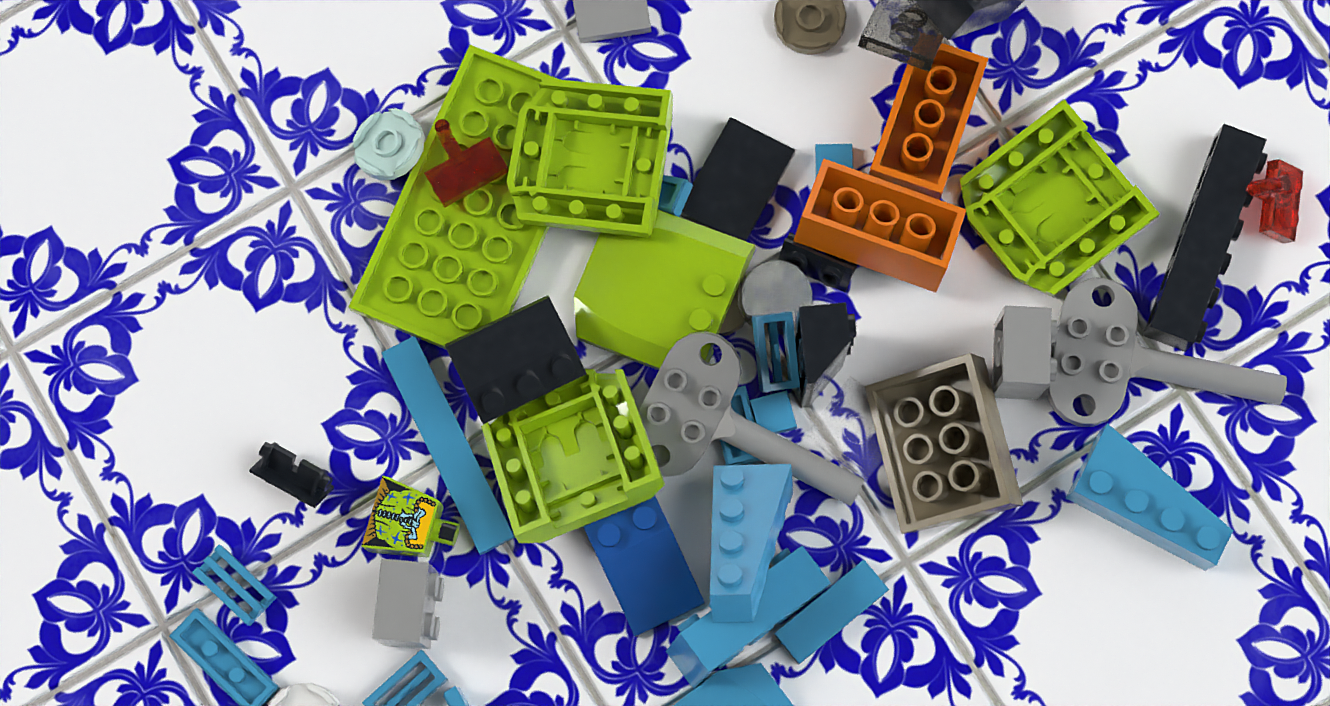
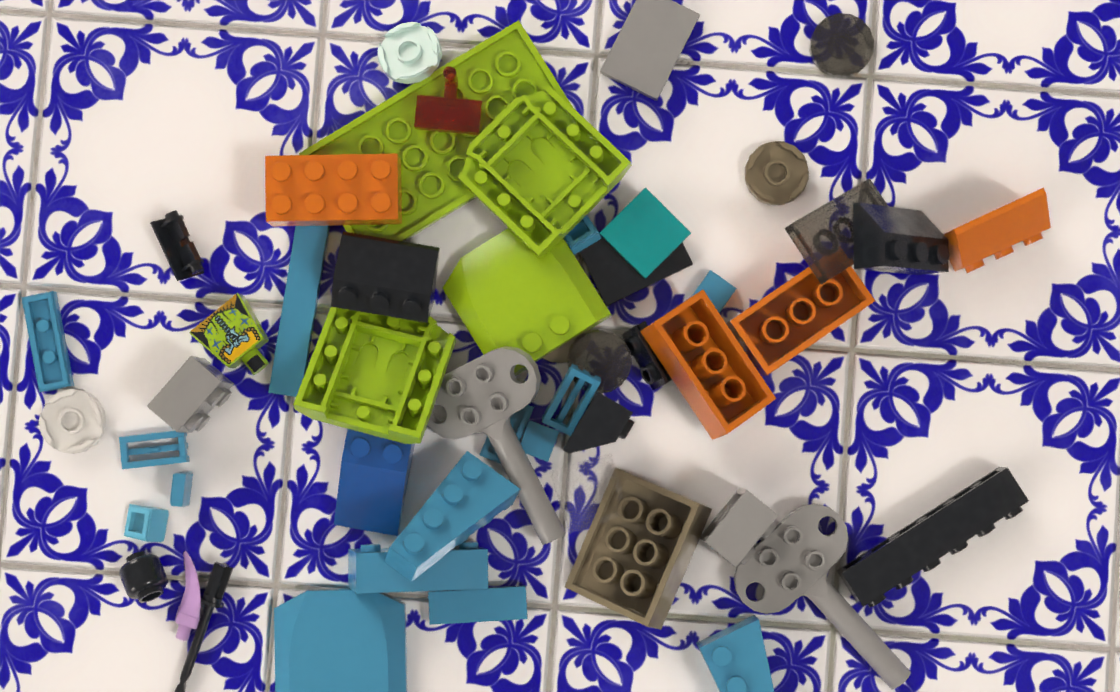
camera: 30 degrees right, 10 degrees up
(210, 562) = (81, 317): dark azure tile -> none
(408, 312) = (333, 190): none -> orange brick
(730, 151) = (645, 233): none -> teal tile
(1053, 202) = (844, 434): lime wedge -> none
(1280, 199) = (1005, 548): clear red plate -> none

